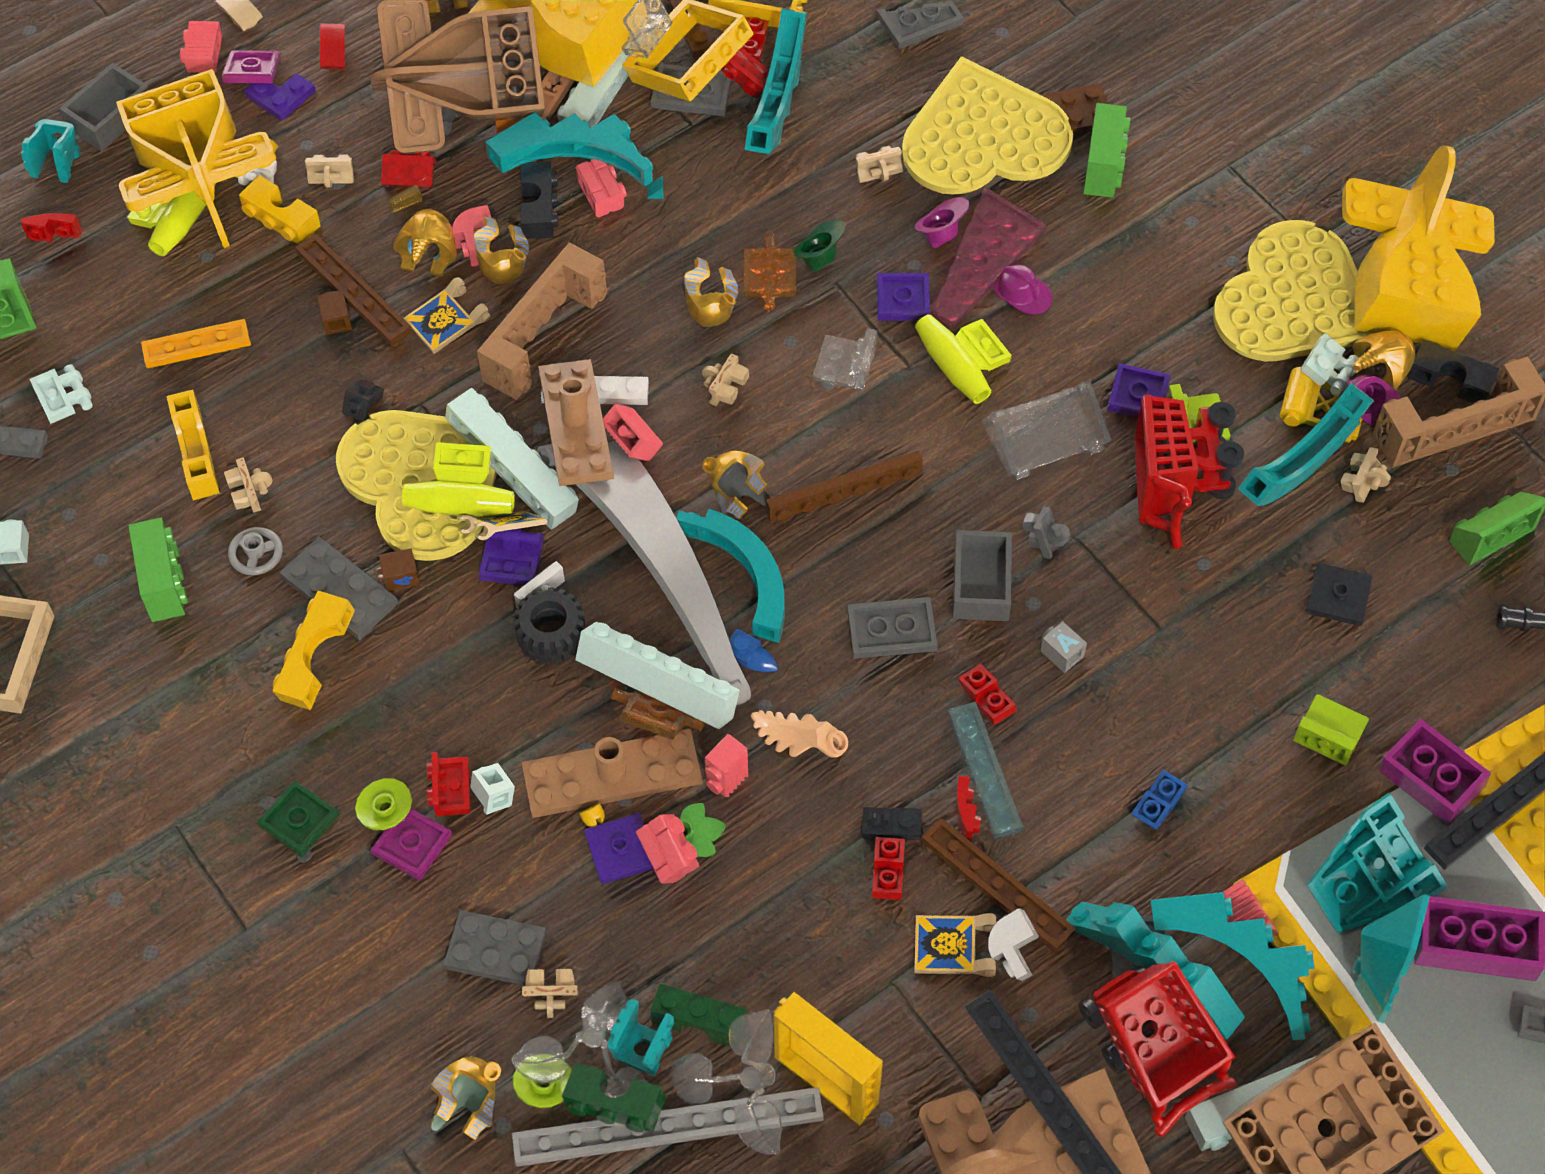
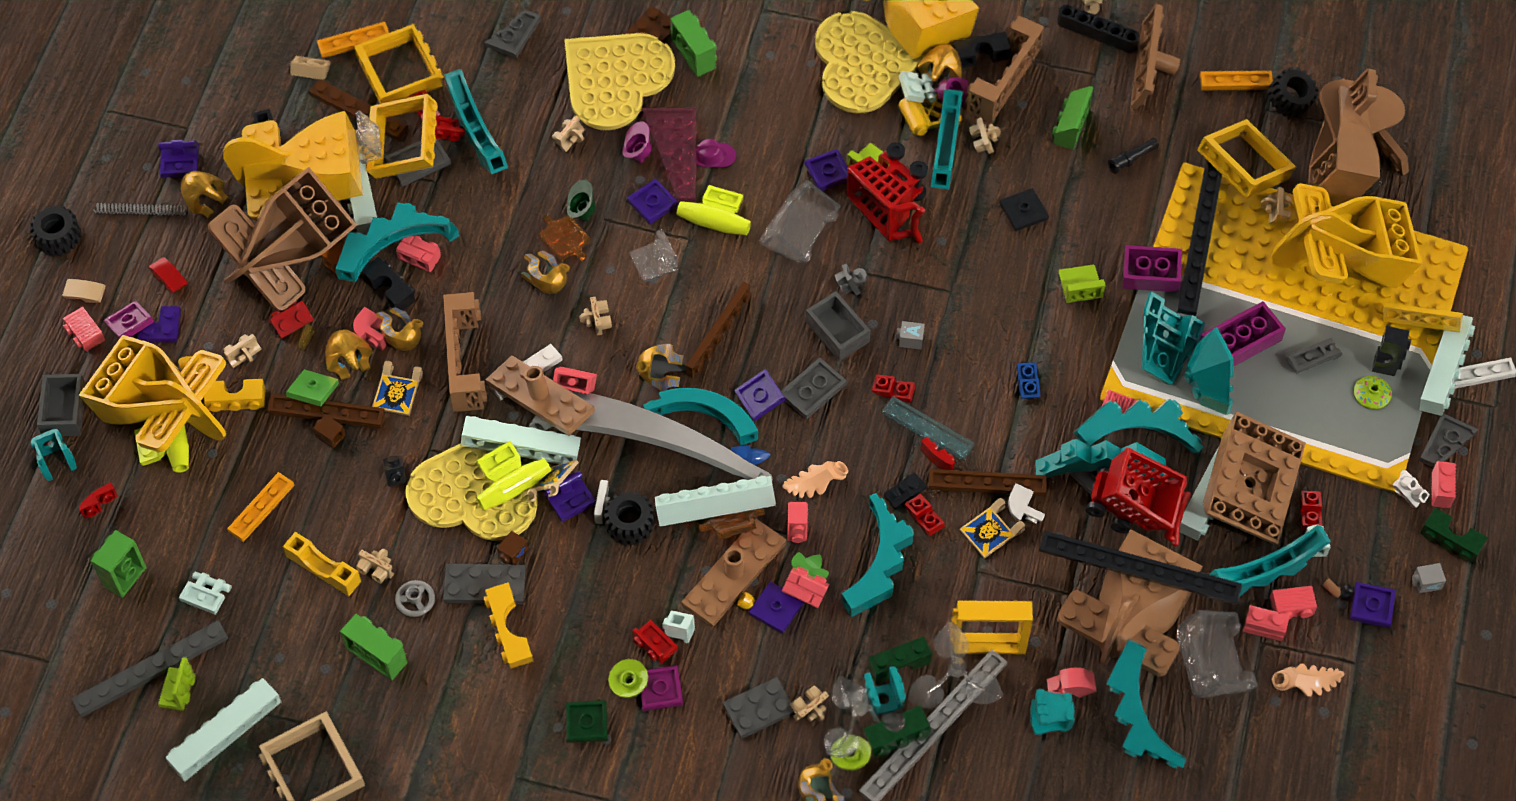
camera: 40 degrees left, 0 degrees up
(359, 255) = (312, 388): none -> bright green plate
(754, 905) = (876, 583): none -> teal arch
(823, 592) = (760, 395): none -> plate

